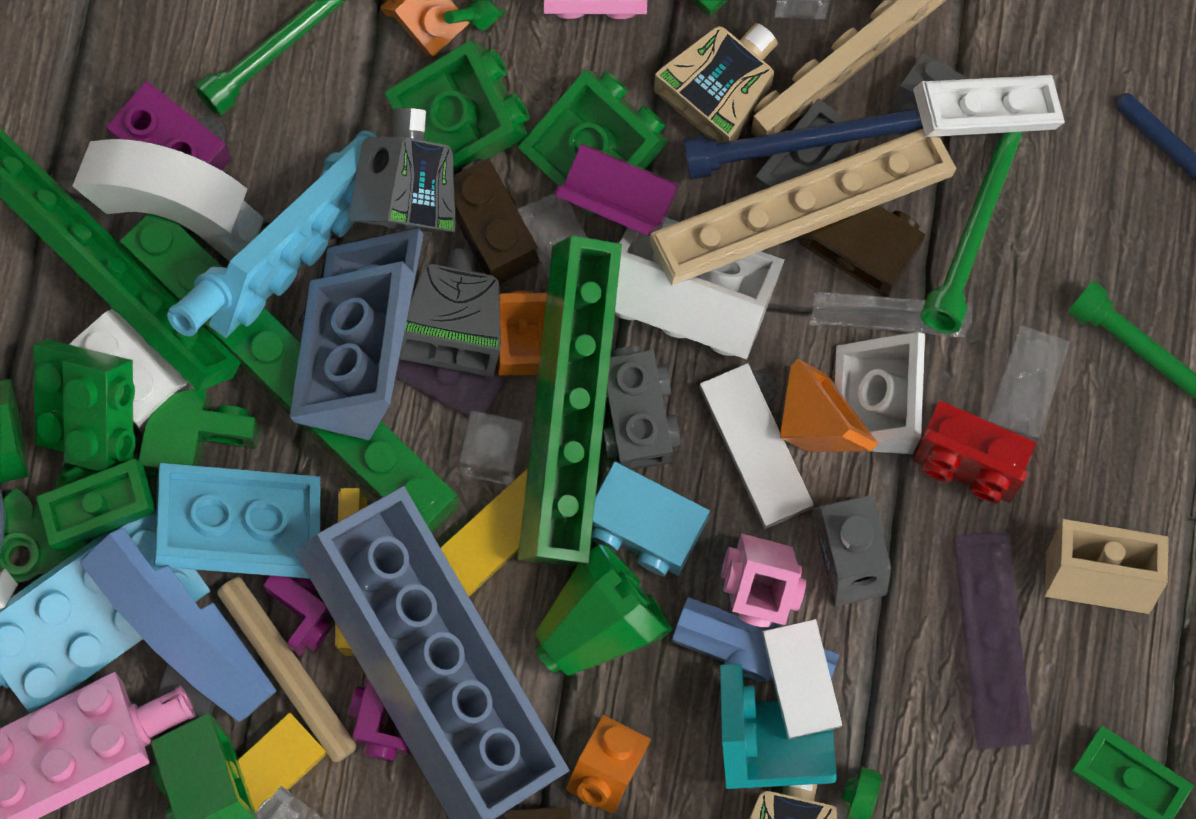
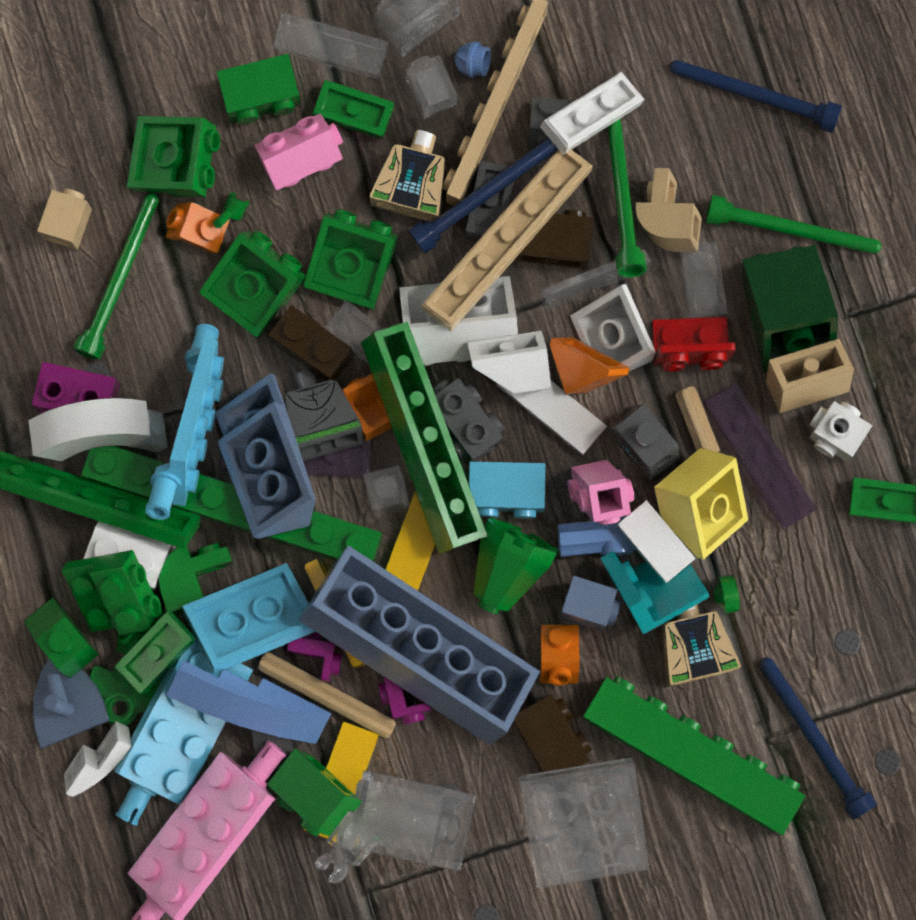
camera: 25 degrees left, 5 degrees up
(405, 179) = (246, 346): dark grey torso -> none
(618, 190) = (384, 285): magenta panel -> none
(676, 716) = (590, 604): none -> sand blue brick
(732, 363) = (513, 361): none -> white slope
(889, 658) = (703, 501): none -> light yellow slope
(932, 558) = (696, 419): none -> tan axle
(1016, 282) = (669, 223): none -> tan brick
(1096, 667) = (852, 430): none -> white brick
(1125, 459) = (788, 302): none -> dark green slope

